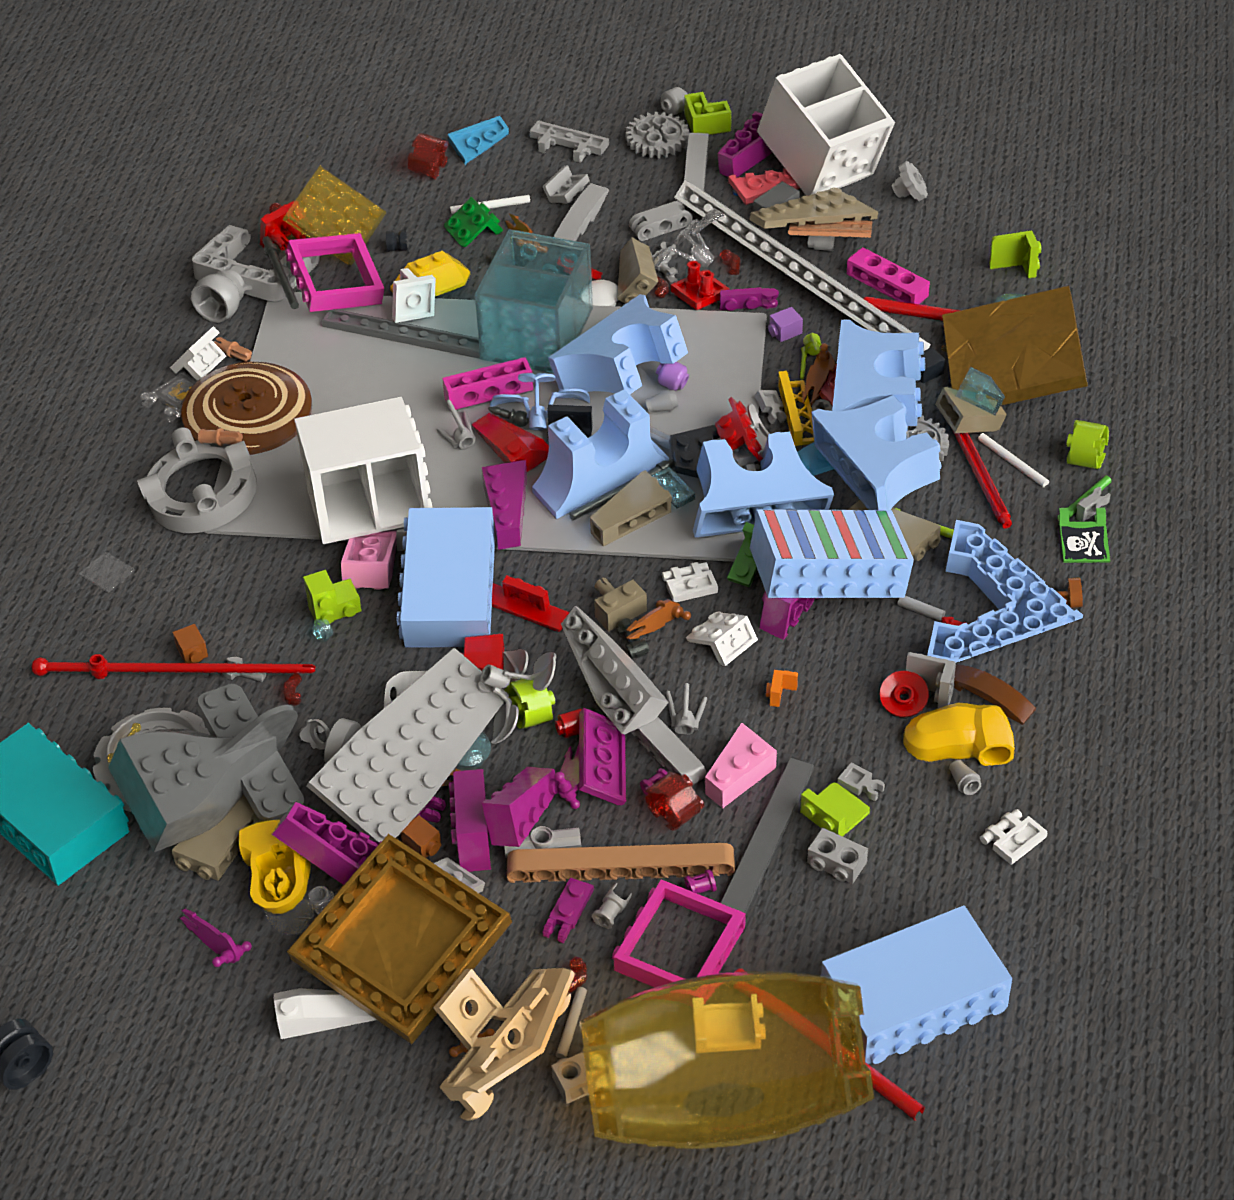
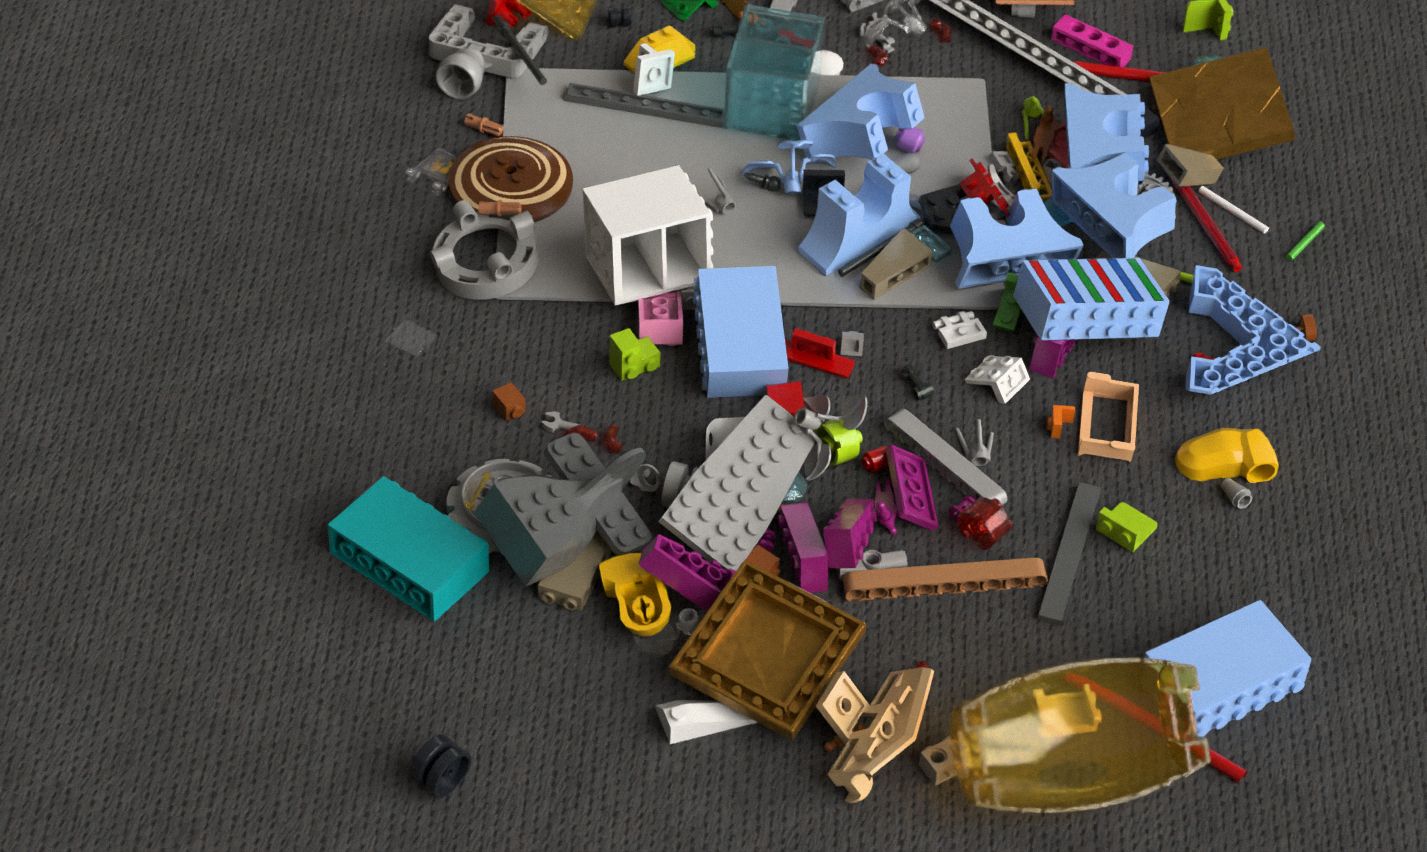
camera: 10 degrees left, 0 degrees up
(100, 667) = (428, 425): red bar -> none
(201, 356) = (455, 132): white bracket -> none
(215, 940) = (592, 660): magenta piece -> none
(258, 680) = (584, 431): none -> clear red arm
(322, 629) = (629, 383): clear light blue plate -> none
(339, 298) = (607, 68): dark pink window -> none
(484, 383) = (739, 151): dark pink brick -> none
(506, 495) = (776, 247): magenta wedge -> none
(511, 441) = (772, 208): red wedge -> none
(568, 908) = (905, 620): magenta hinge -> none
(569, 593) = (852, 343): none -> light grey tile
(571, 1022) = (926, 719): light grey bar -> none
(610, 908) = (944, 616): light grey piece -> none
(612, 675) = (910, 415): light grey wedge -> none
(618, 603) = (899, 351): dark tan brick -> none
(636, 271) = (856, 42): dark tan slope -> none
(656, 619) = (936, 363): dark orange piece -> none
(657, 977) = (995, 674): dark pink window -> none
(699, 287) = (918, 55): red plate -> none
(700, 883) = (1019, 594): magenta bush -> none
(739, 766) = (1037, 490): bright pink wedge -> none
(748, 298) = (965, 65): magenta hinge -> none
(785, 324) = (1004, 89): medium lavender brick -> none
(832, 650) = (1102, 386): none -> light nougat piece
(833, 853) = (1136, 565): light grey brick -> none
(858, 779) = (1143, 499): light grey plate -> none
(904, 683) = (1171, 413): red dish -> none
(921, 608) = (1173, 346): light grey piece -> none
(937, 674) = (1195, 404): light grey bracket -> none
(981, 391) = (1200, 147): clear light blue slope -> none
(995, 691) = (1246, 415): reddish brown slope -> none
(1018, 841) = (1291, 546): white plate -> none
(1084, 540) = (1308, 281): flag -> none
(1087, 444) = (1300, 193): lime brick -> none
(1087, 506) = (1309, 249): light grey plate -> none

